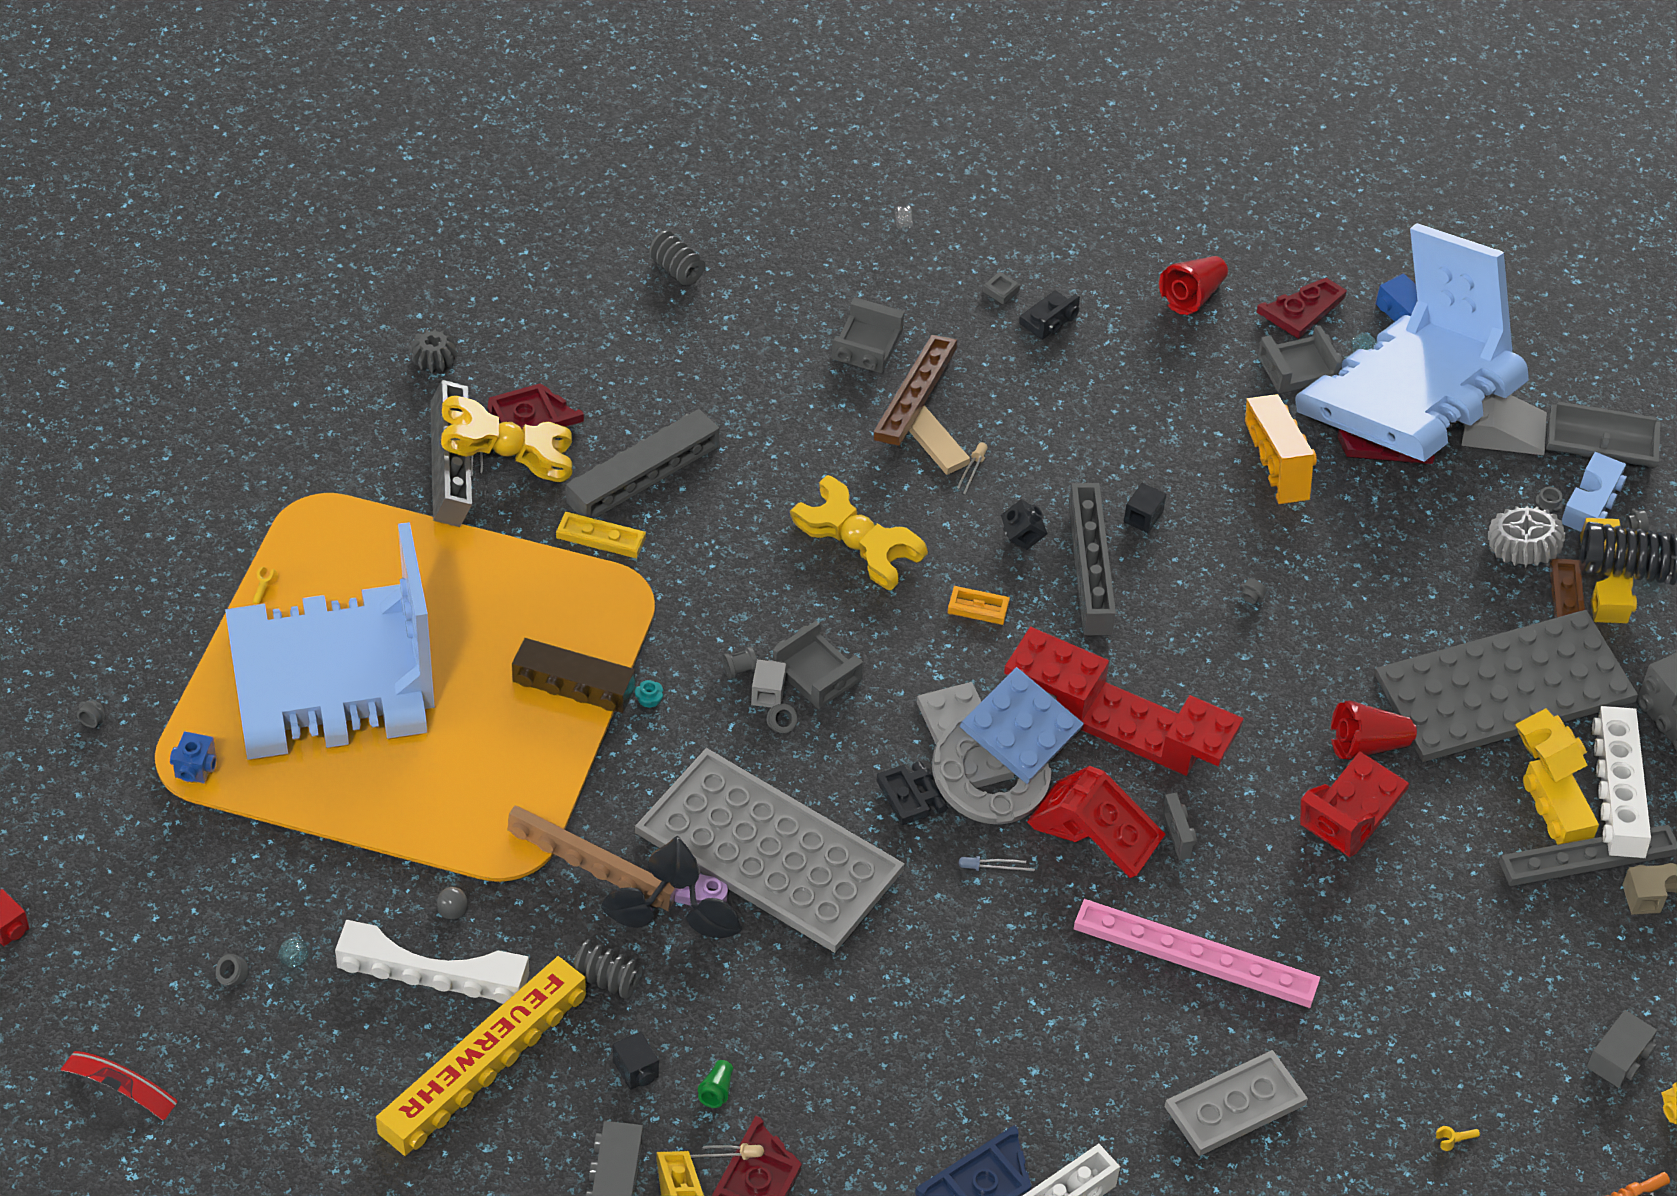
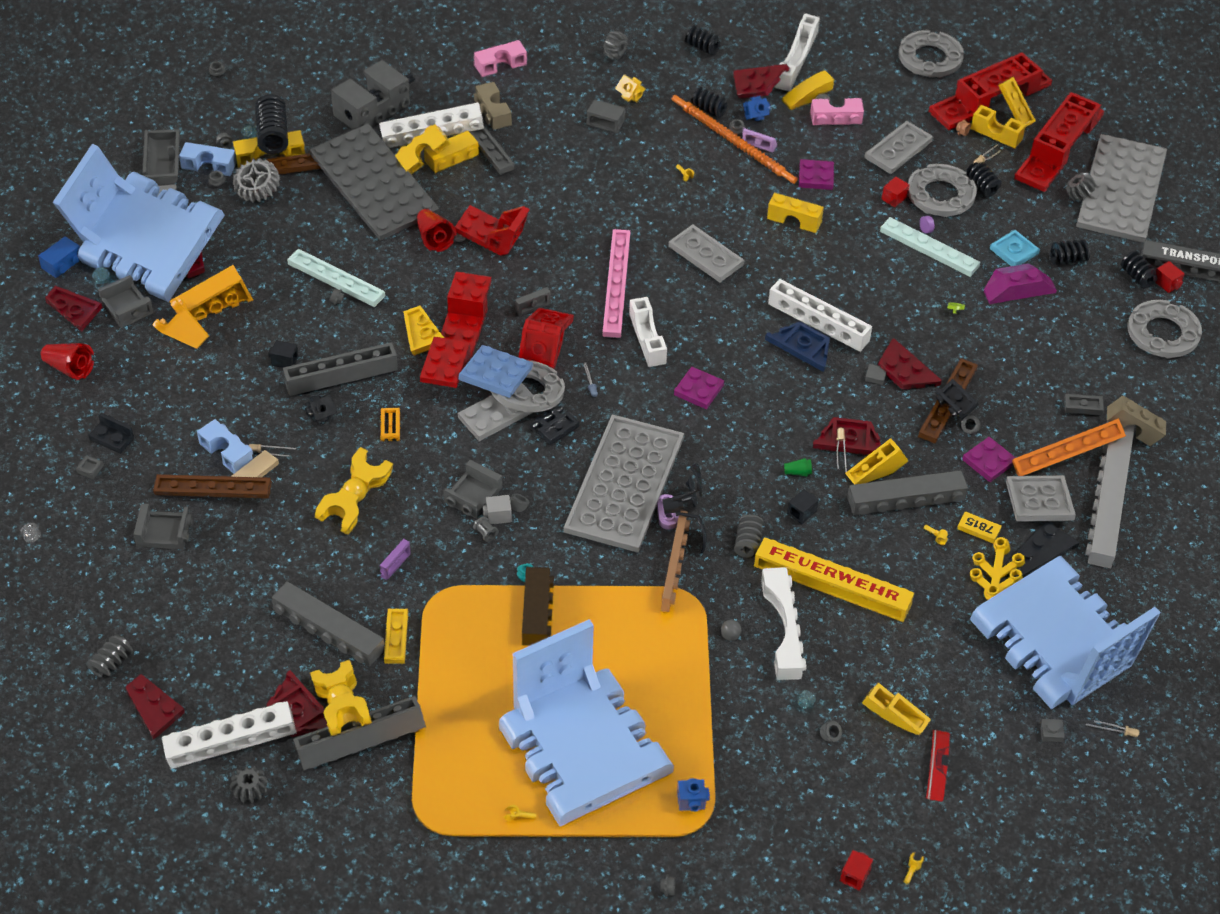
camera: 105 degrees left, 0 degrees up
(223, 1055) = (896, 709): none -> yellow slope
(507, 339) = (220, 742): none -> white brick
(593, 291) = (153, 705): none -> dark red wing
(722, 553) = (395, 559): none -> medium lavender tile
(933, 1004) = (699, 387): none -> magenta plate
(1007, 412) = (216, 437): none -> light blue arch
(1096, 959) = (651, 344): none -> white arch
(1148, 672) = (420, 330): none -> yellow wing
(1234, 401) = (182, 326): none -> light orange flag
(1293, 598) = (336, 277): none -> light aqua plate

